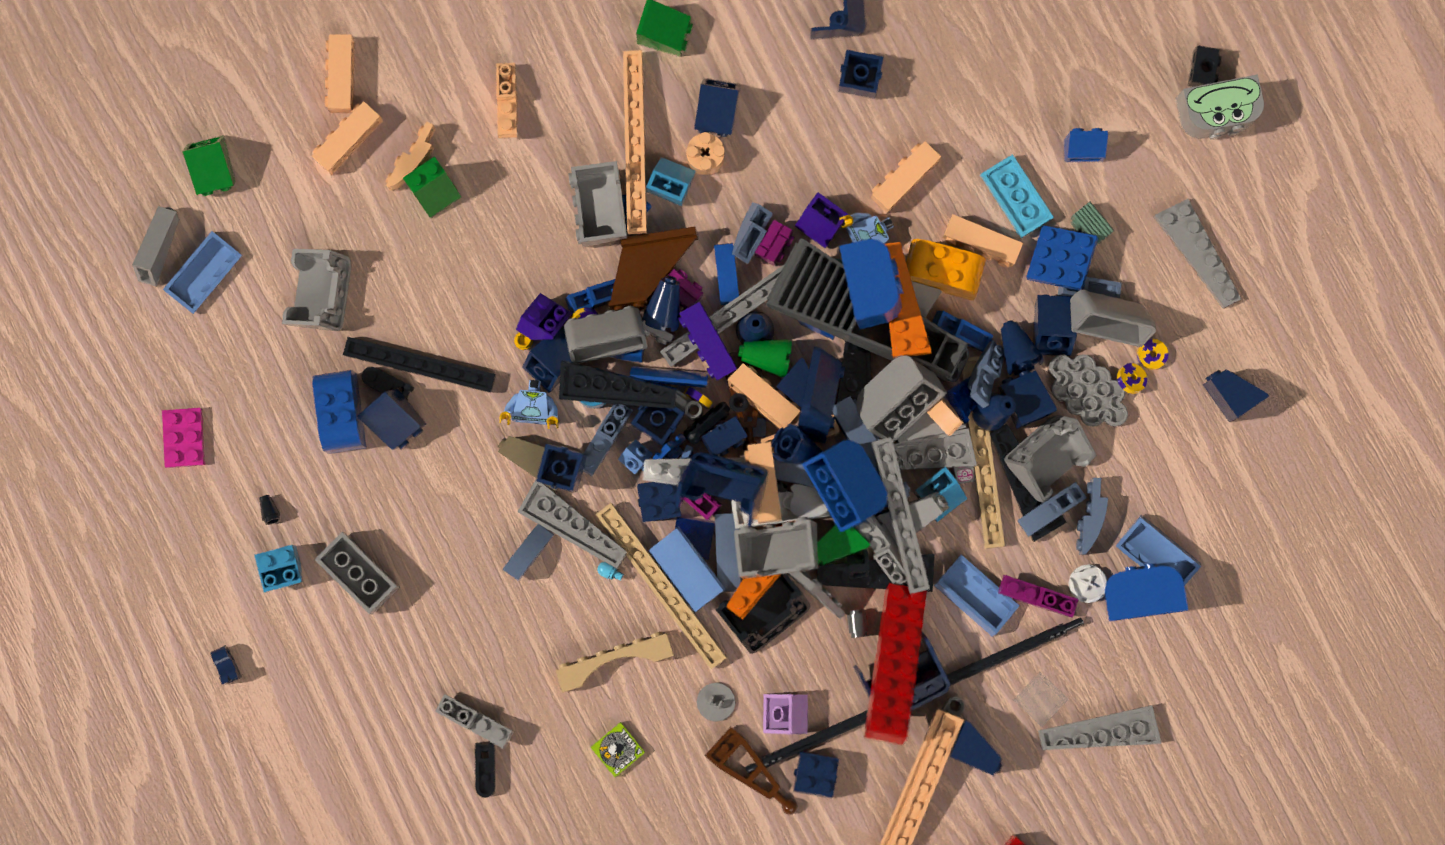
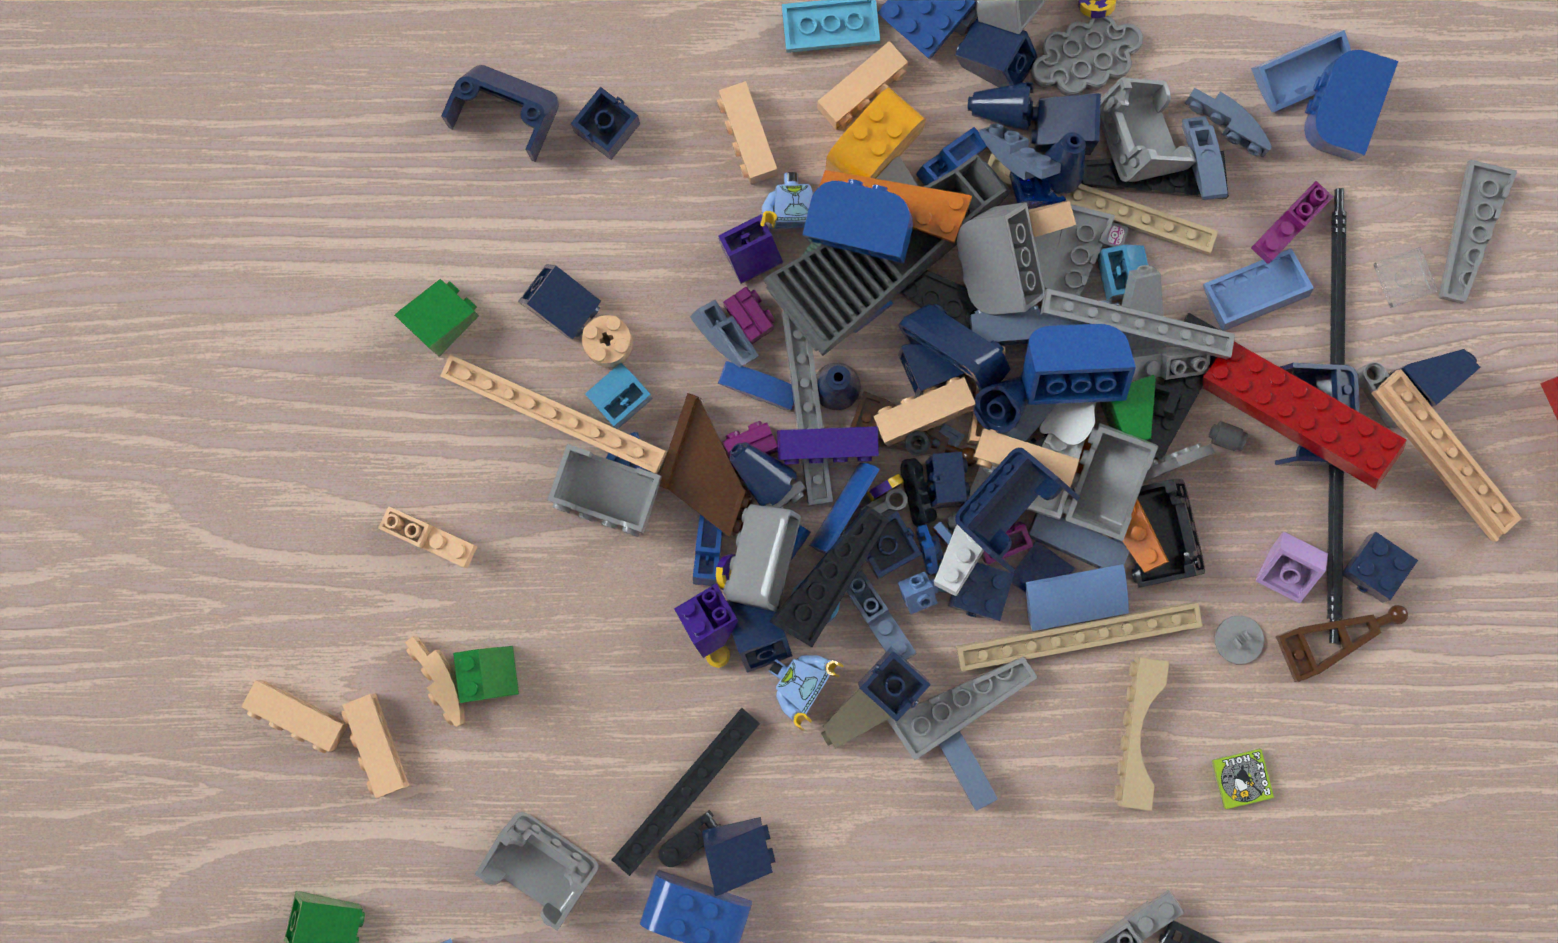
camera: 60 degrees left, 0 degrees up
(608, 571) = (1034, 689): medium azure cylinder -> none
(767, 355) = (877, 383): green cone -> none
(1087, 583) = (1300, 163): white tile -> none

